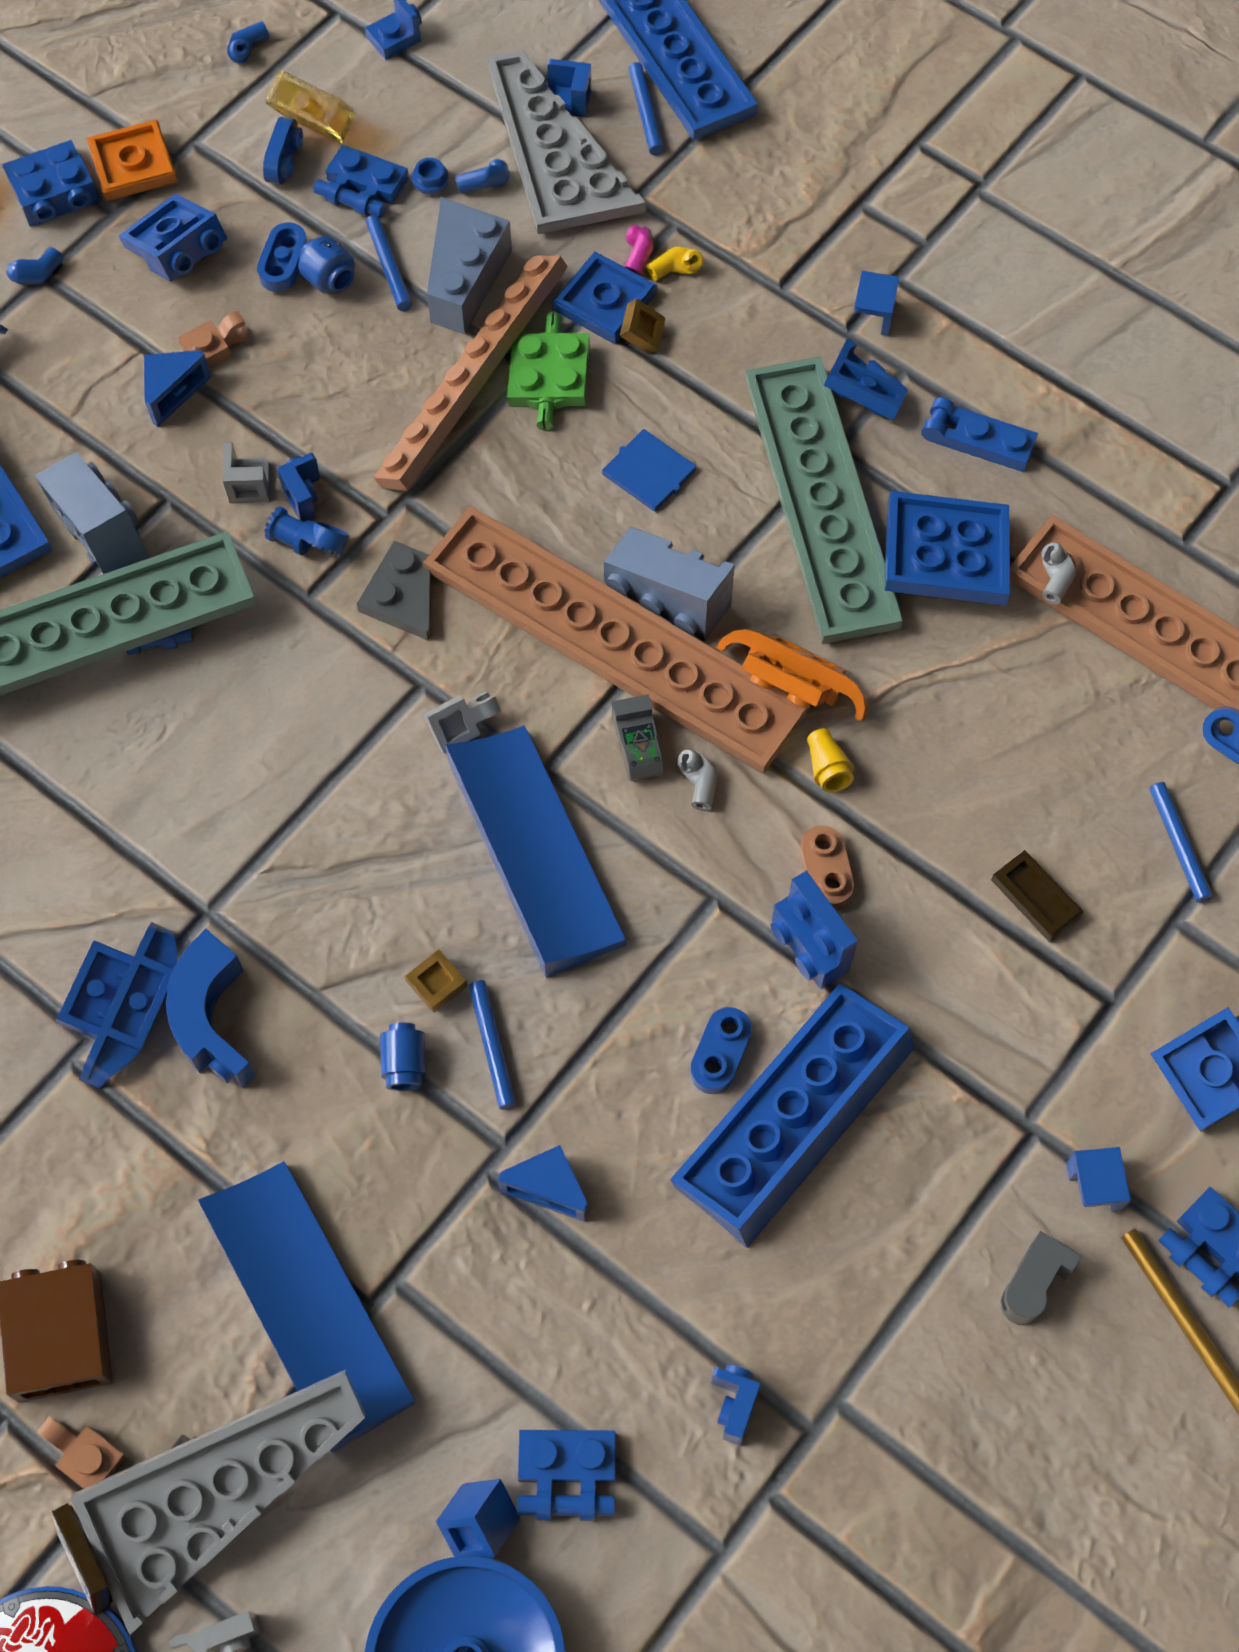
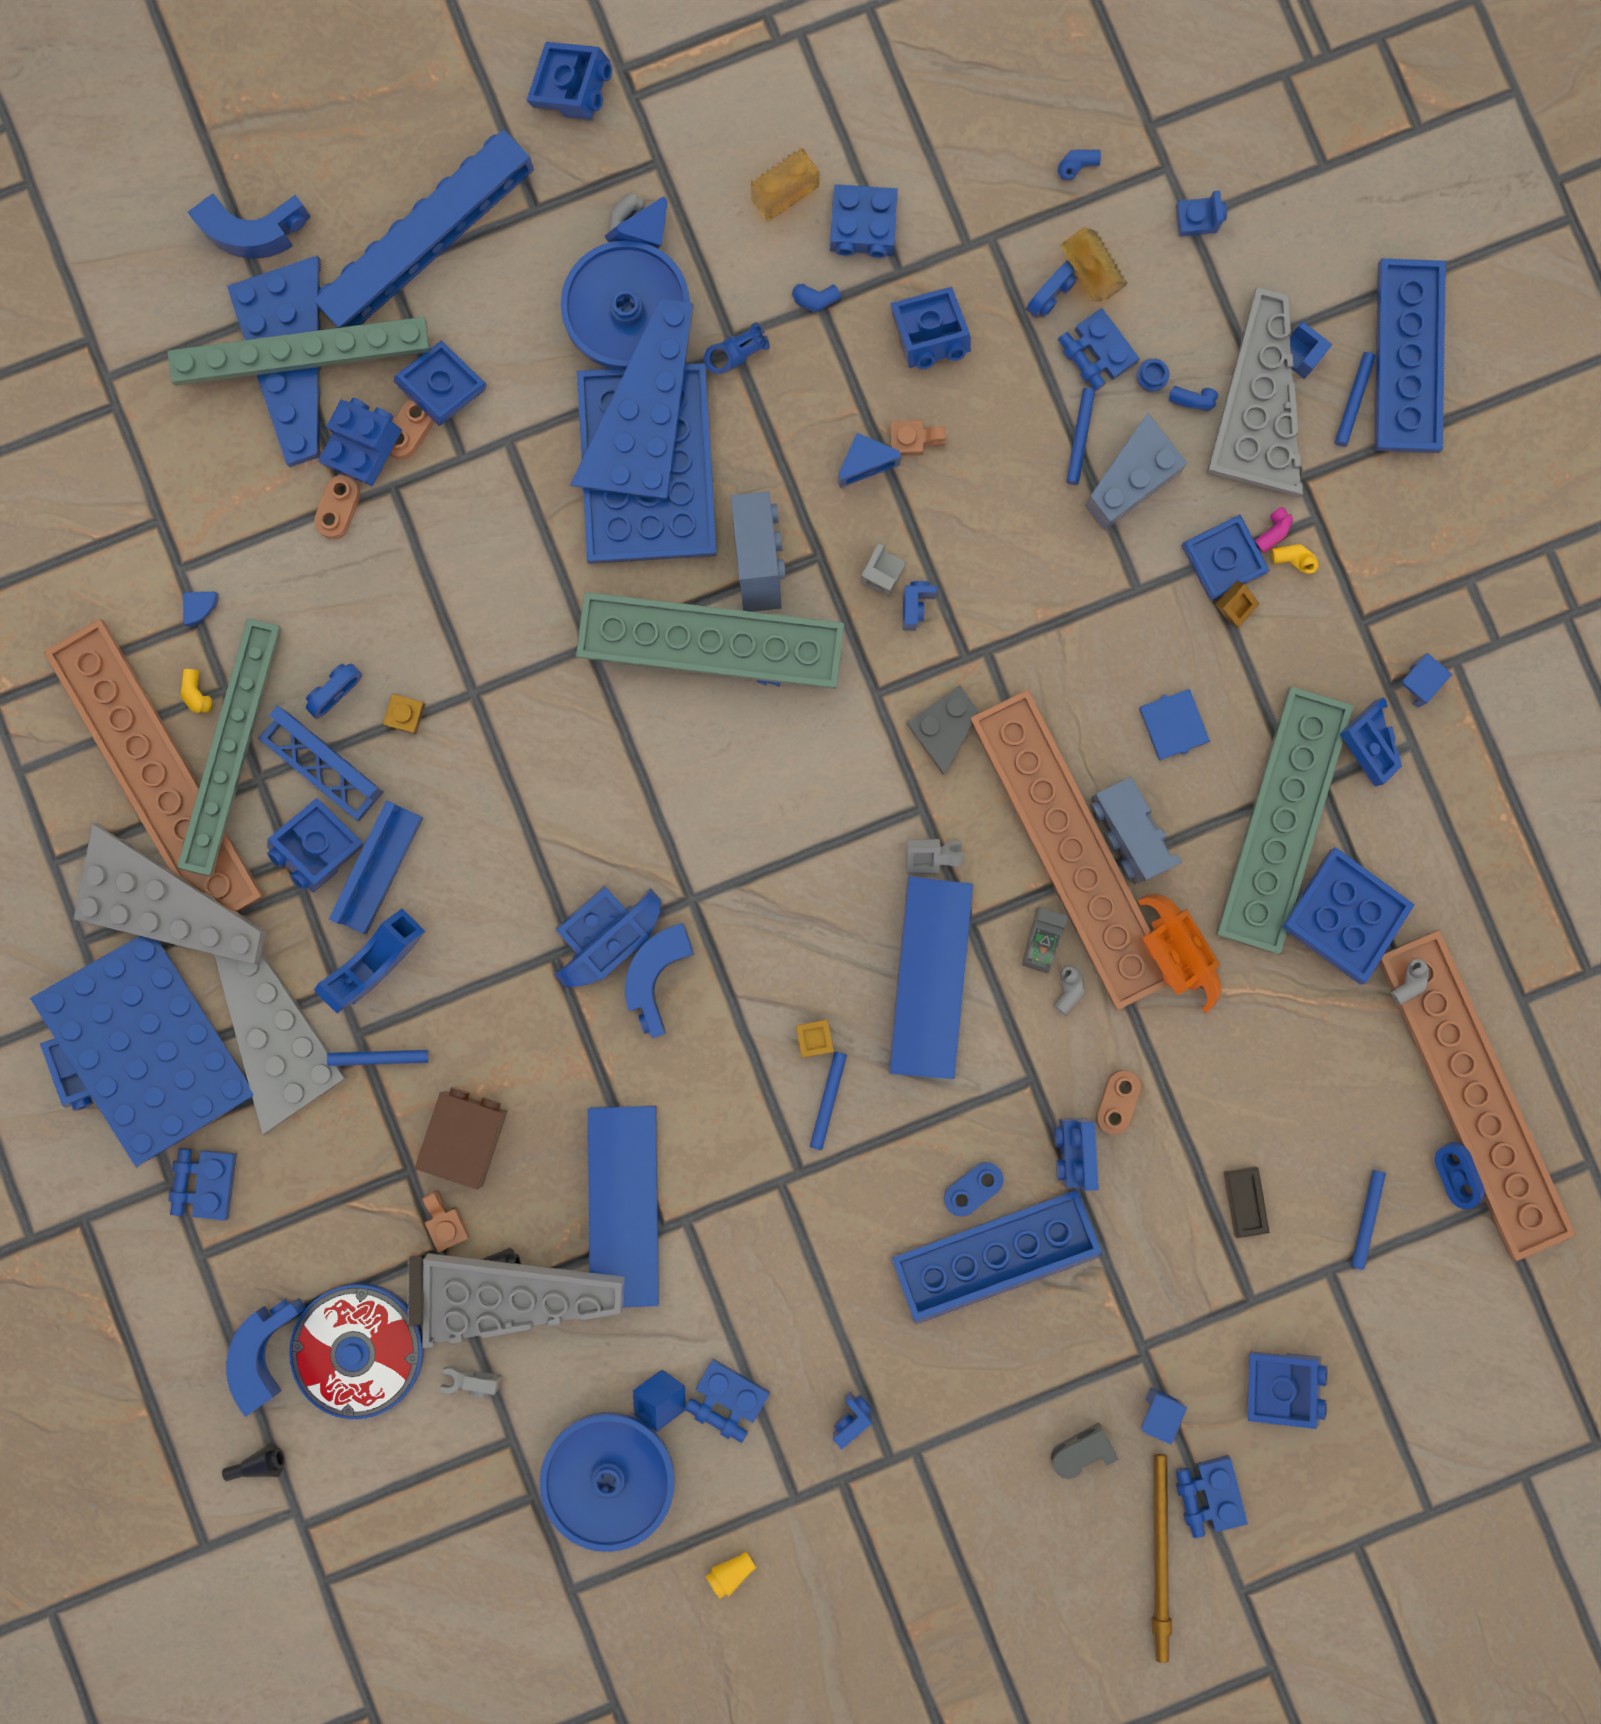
camera: 30 degrees right, 20 degrees up
(132, 160) = (934, 233): orange plate -> none
(280, 260) = (1002, 391): blue plate -> none
(304, 534) = (908, 654): blue connector -> none
(326, 265) = (1031, 419): blue head -> none
(403, 1057) = (765, 1079): blue brick -> none
(470, 373) = (1091, 571): nougat plate -> none
(546, 1183) = (813, 1216): blue slope -> none
(549, 370) = (1148, 600): bright green plate -> none
(829, 763) = (1165, 1028): yellow cone -> none
(979, 435) = (1431, 832): blue plate -> none

